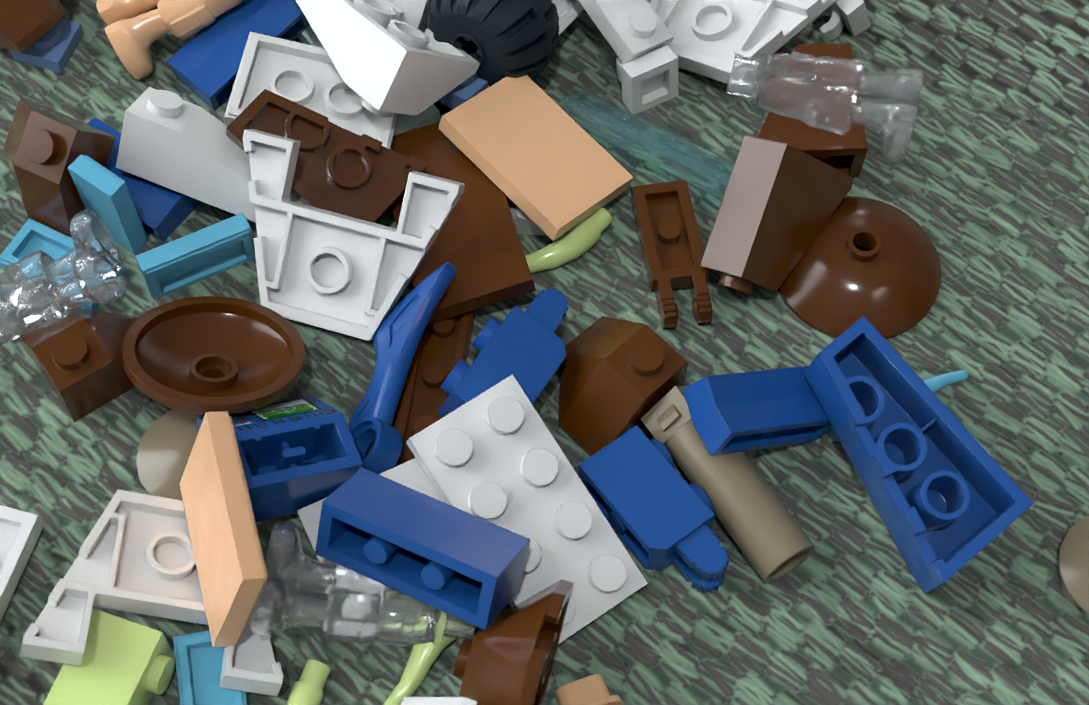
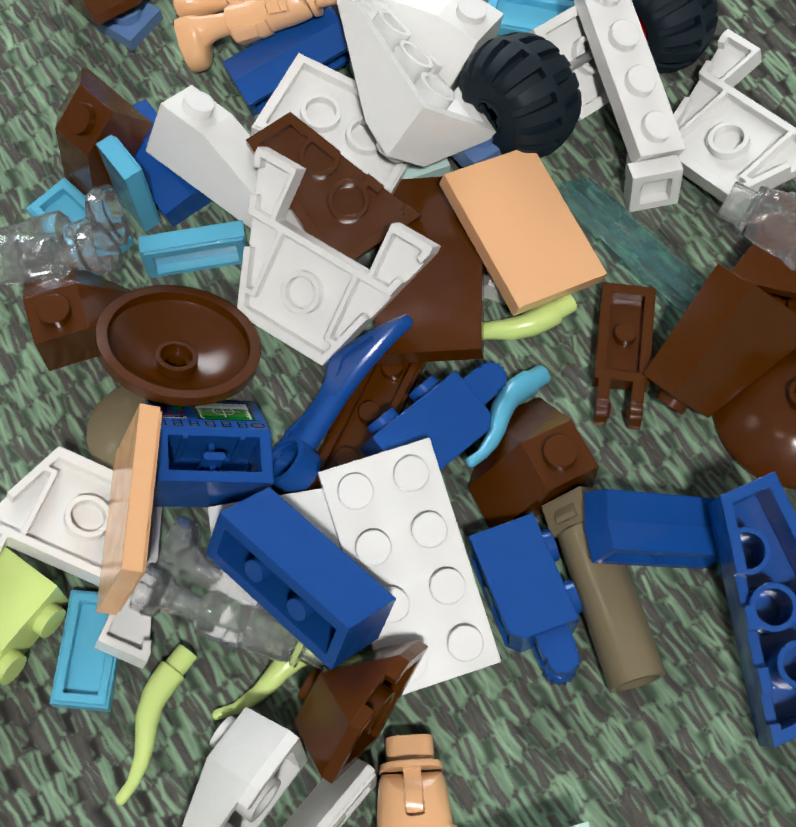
camera: 20 degrees right, 5 degrees up
(580, 313) = (517, 390): none -> medium azure animal

